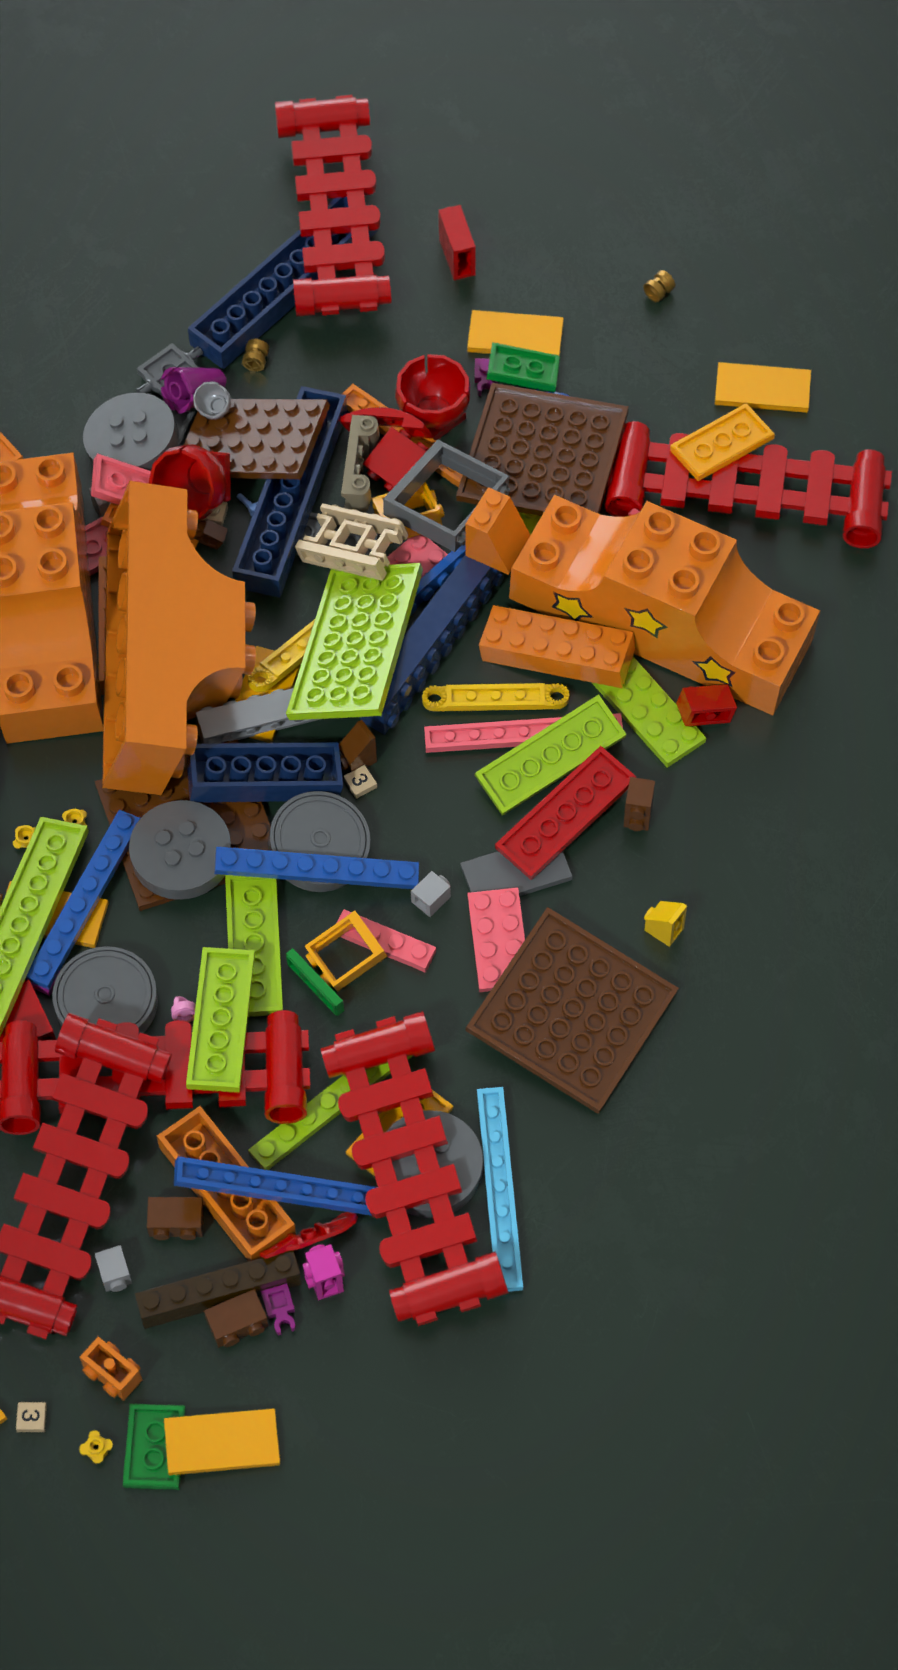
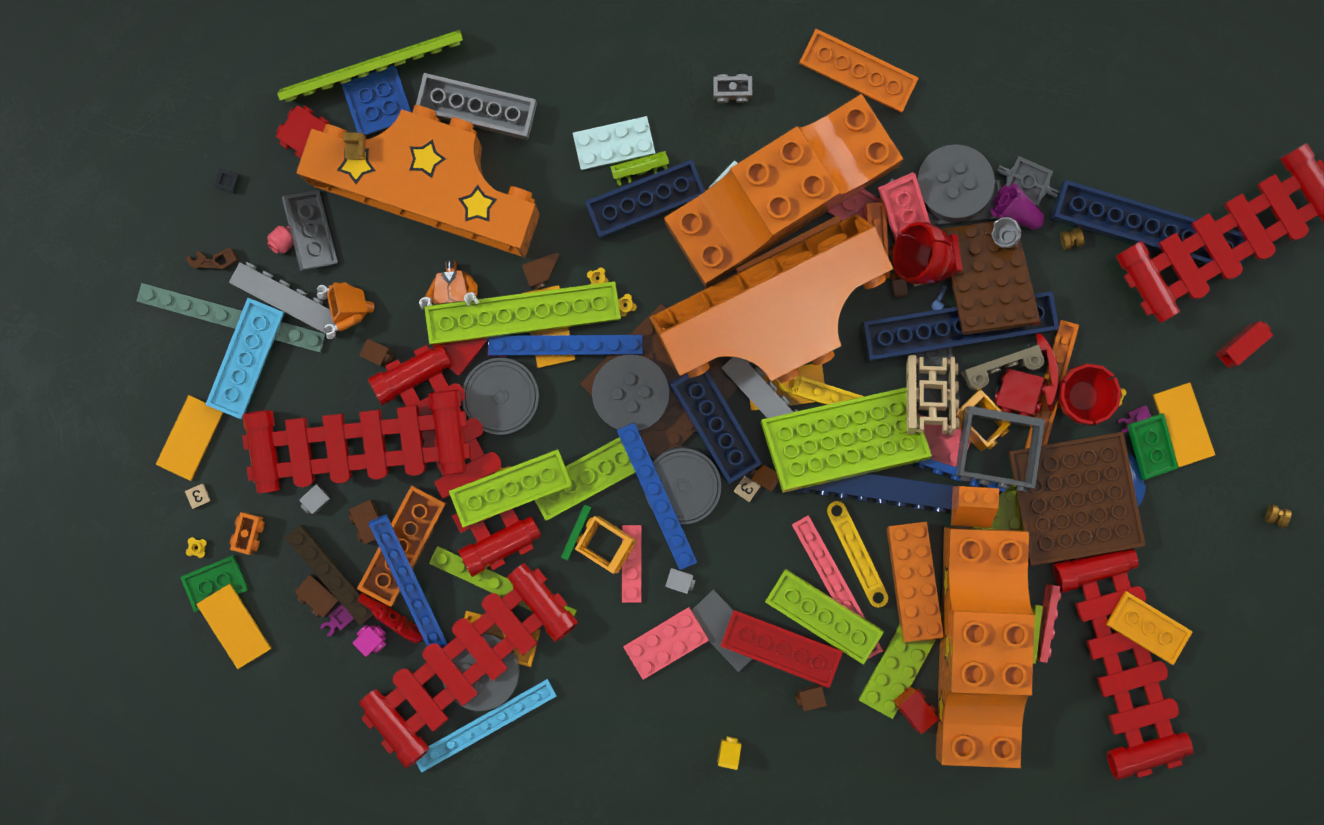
camera: 65 degrees right, 25 degrees up
(183, 1009) = (515, 454): bright pink tile -> none
(572, 1010) = (633, 718): reddish brown plate -> none
(763, 387) = (1221, 633): light orange tile -> none

